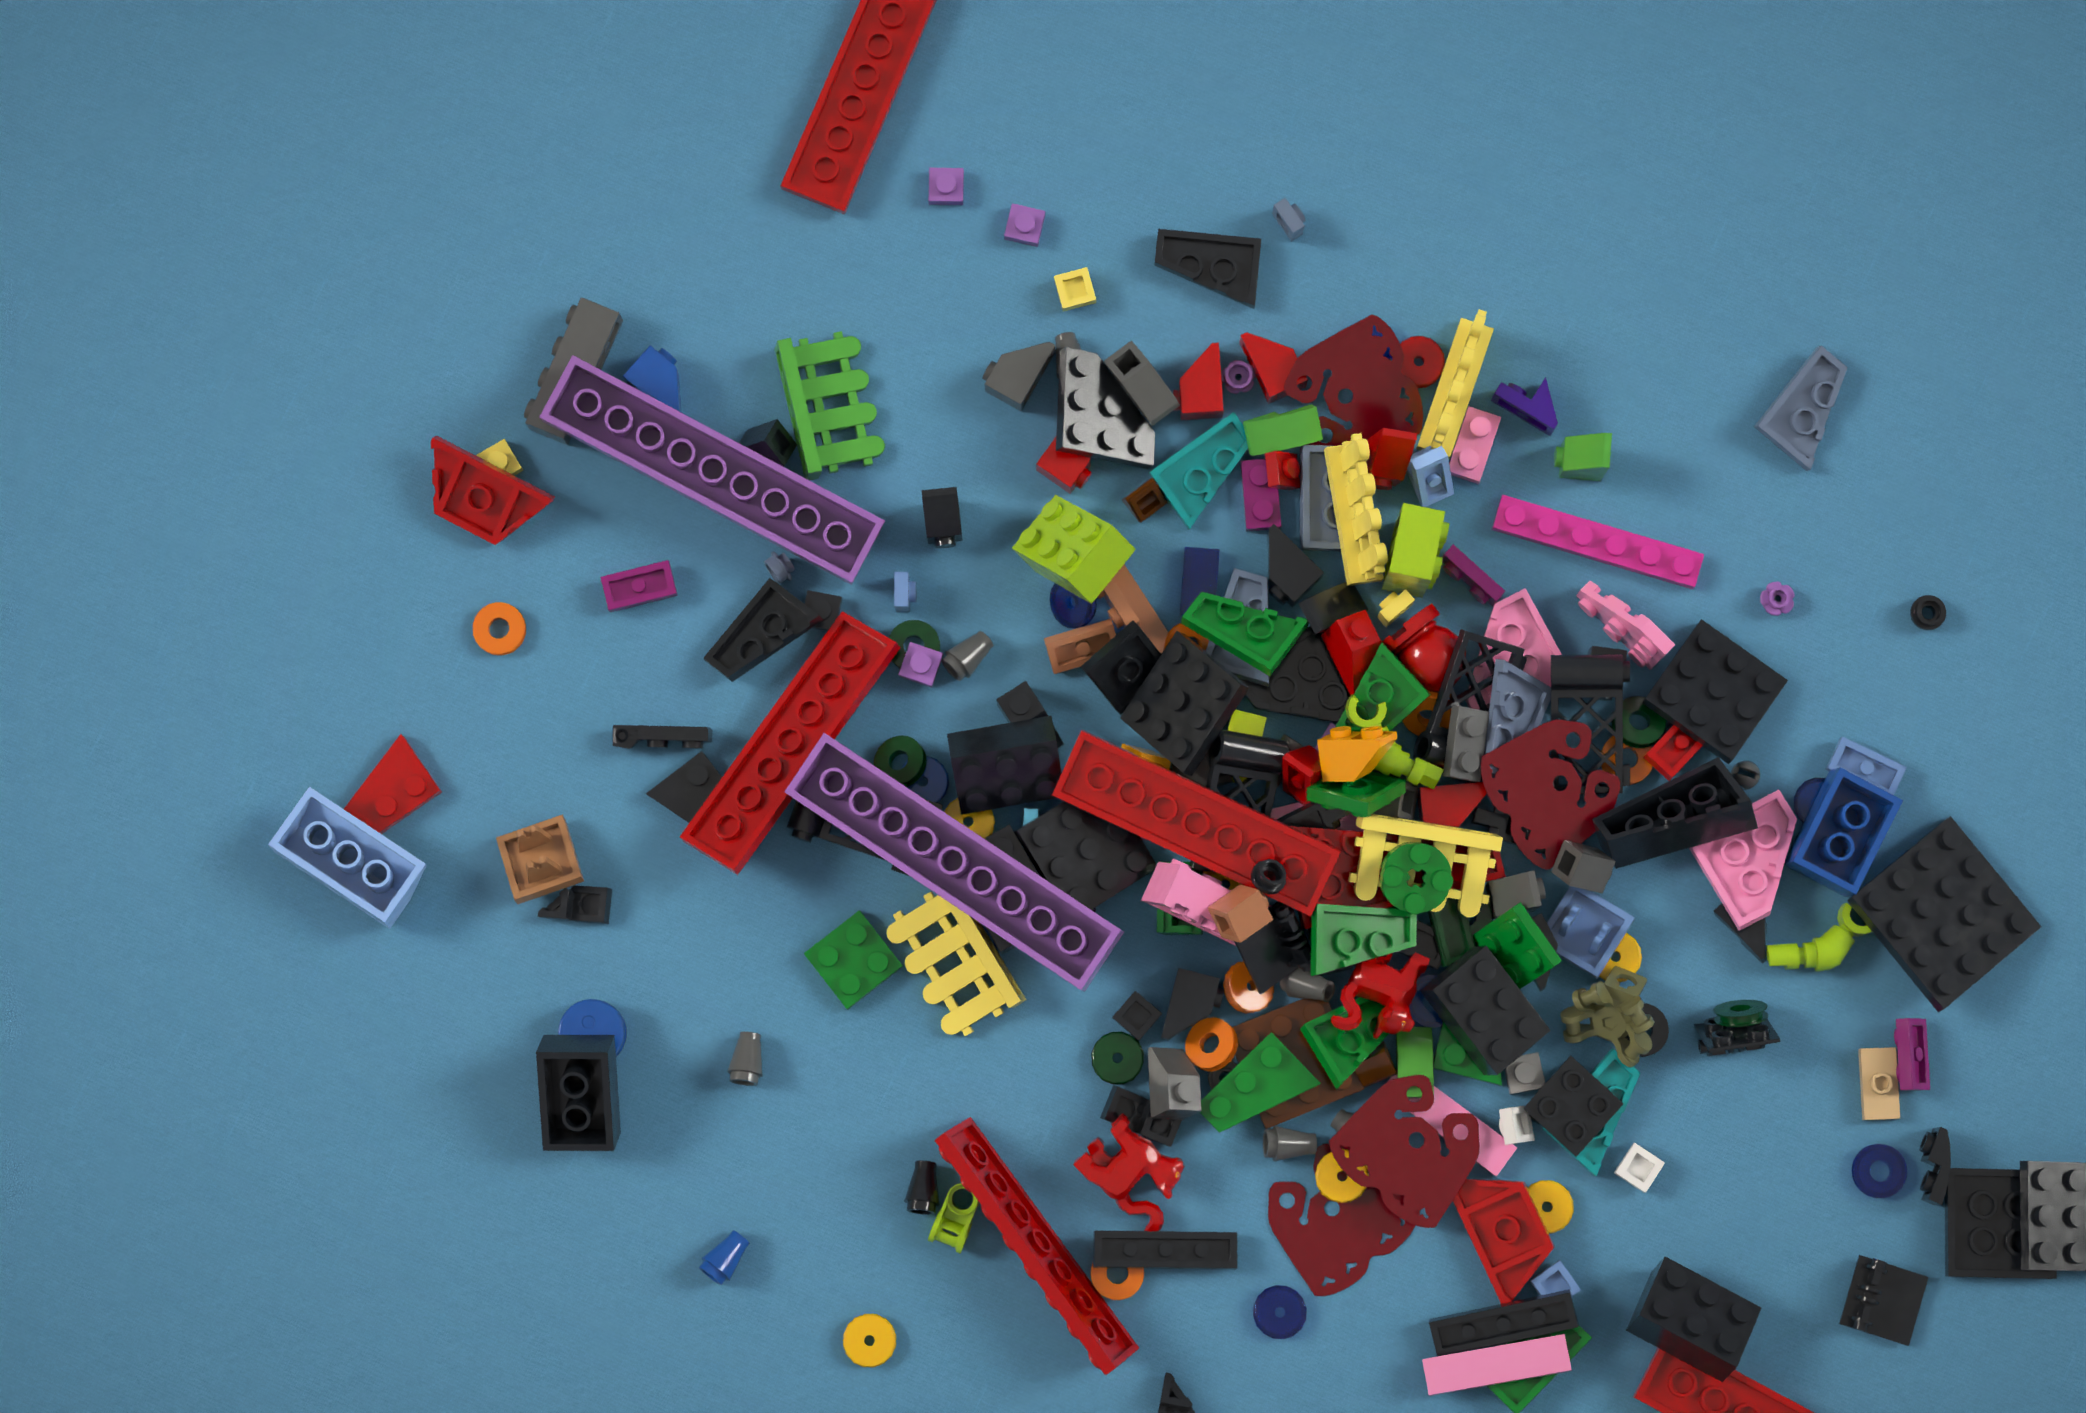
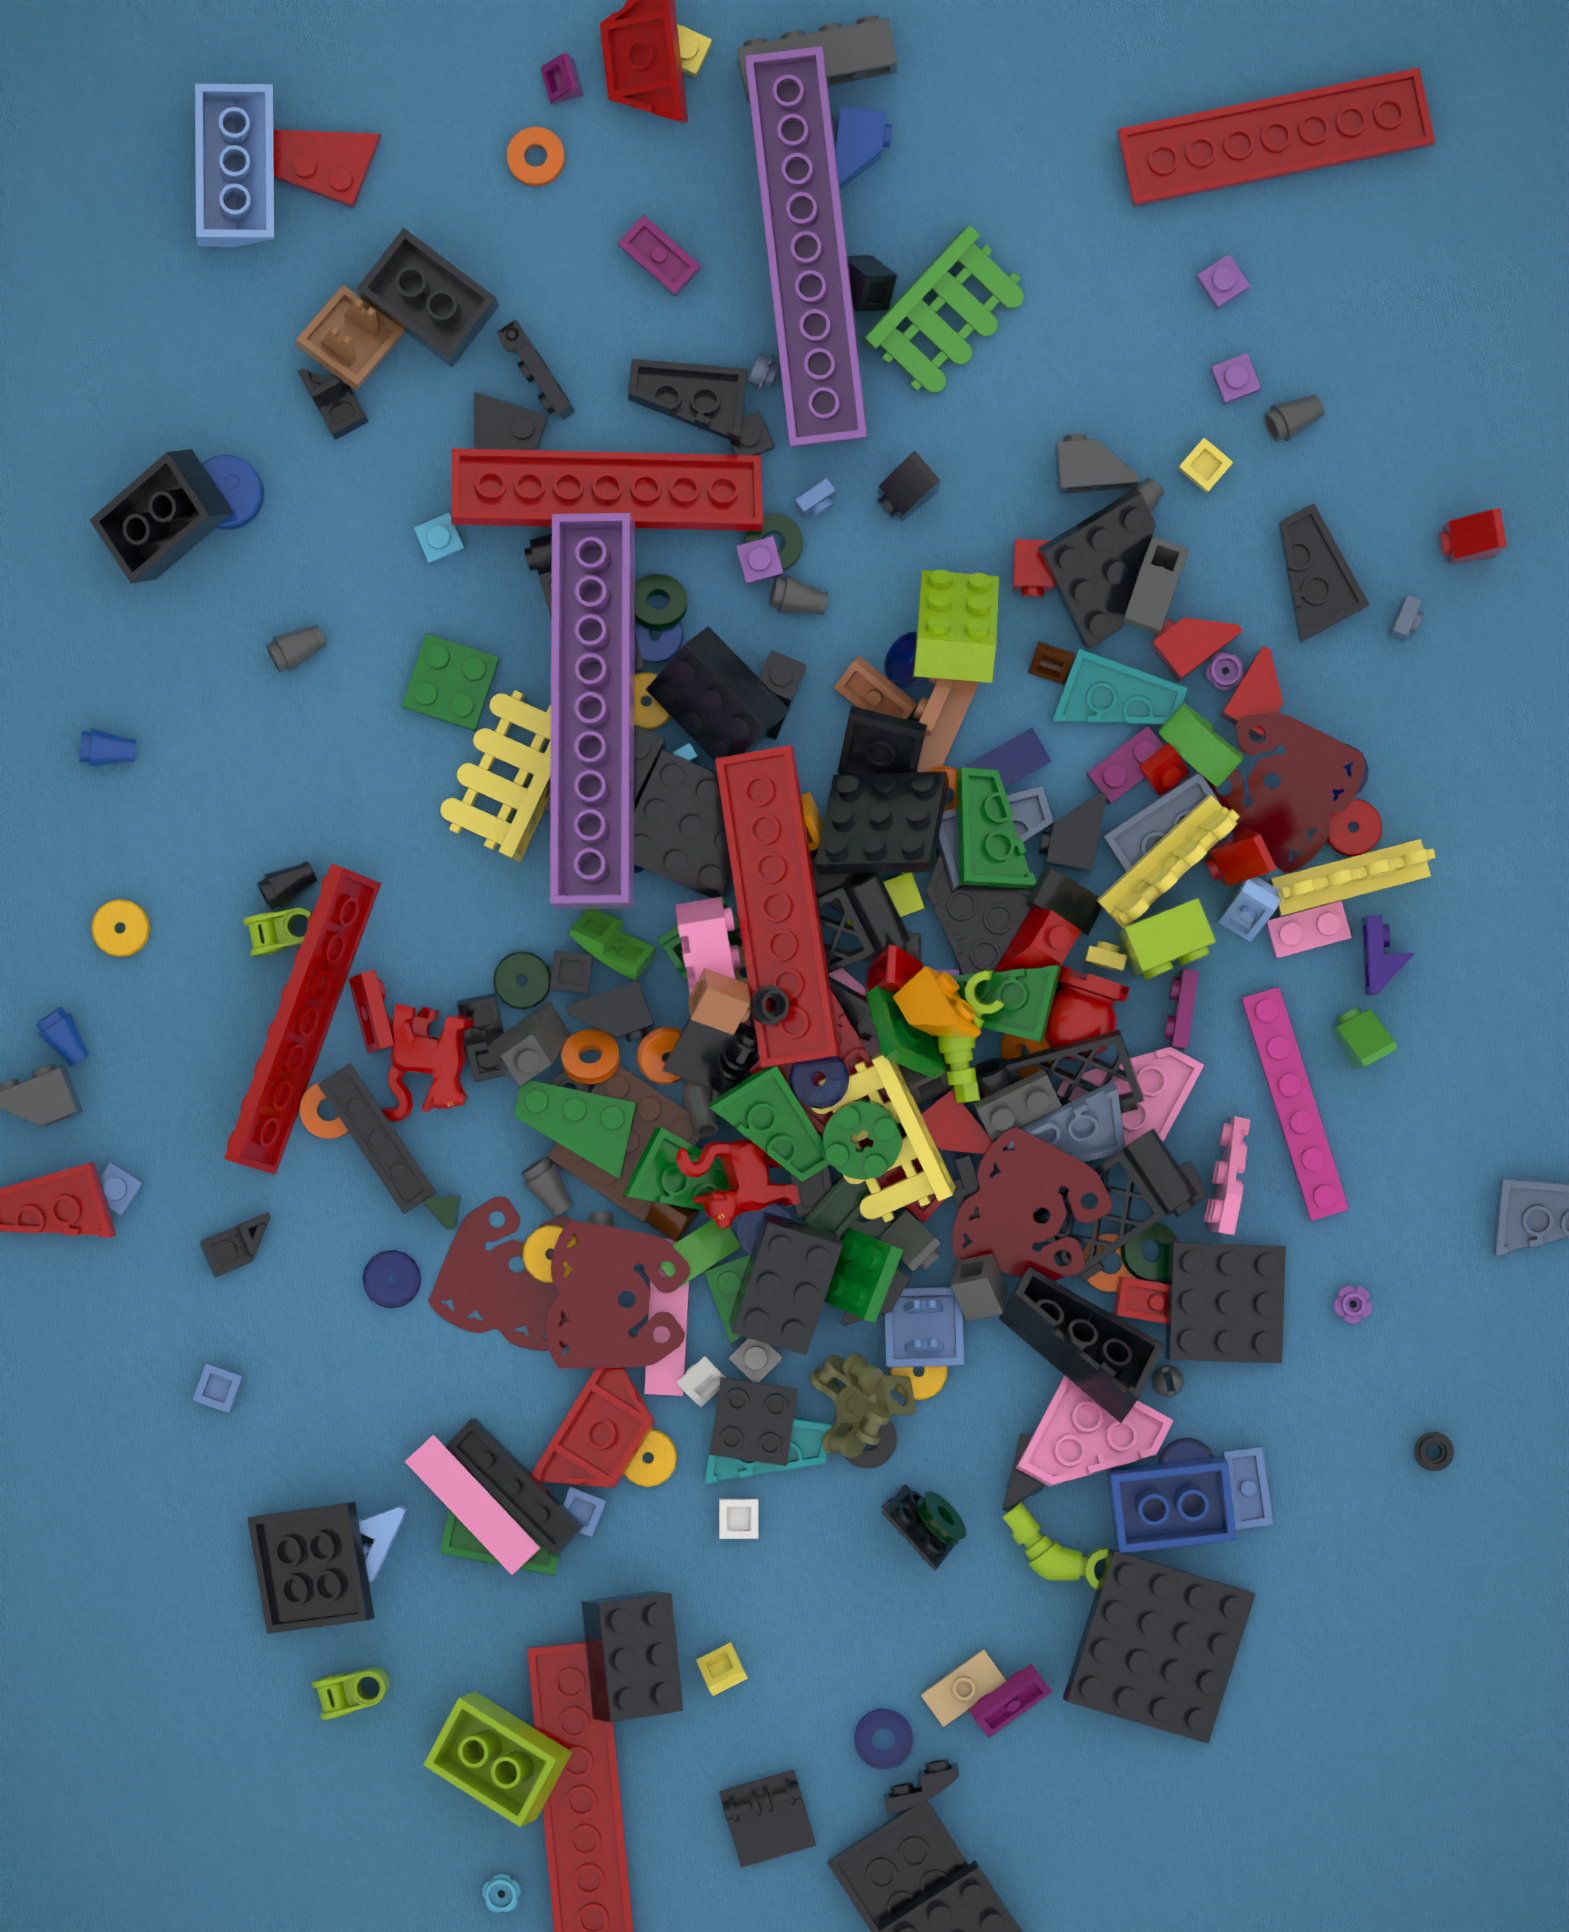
camera: 55 degrees right, 5 degrees up
(454, 570) = (561, 79): none -> magenta slope
(551, 779) = (428, 297): none -> black brick
(738, 895) = (439, 539): none -> medium azure plate
(1063, 1188) = (374, 1023): none -> red plate
(1082, 202) = (1292, 417): none -> dark grey cone
(1128, 973) = (604, 939): none -> bright green slope
(1254, 1234) = (445, 1210): none -> dark green slope
(1263, 129) = (1473, 537): none -> red slope
(1363, 880) = (819, 1096): none -> clear blue piece
(1747, 1258) = (721, 1669): none -> light yellow plate

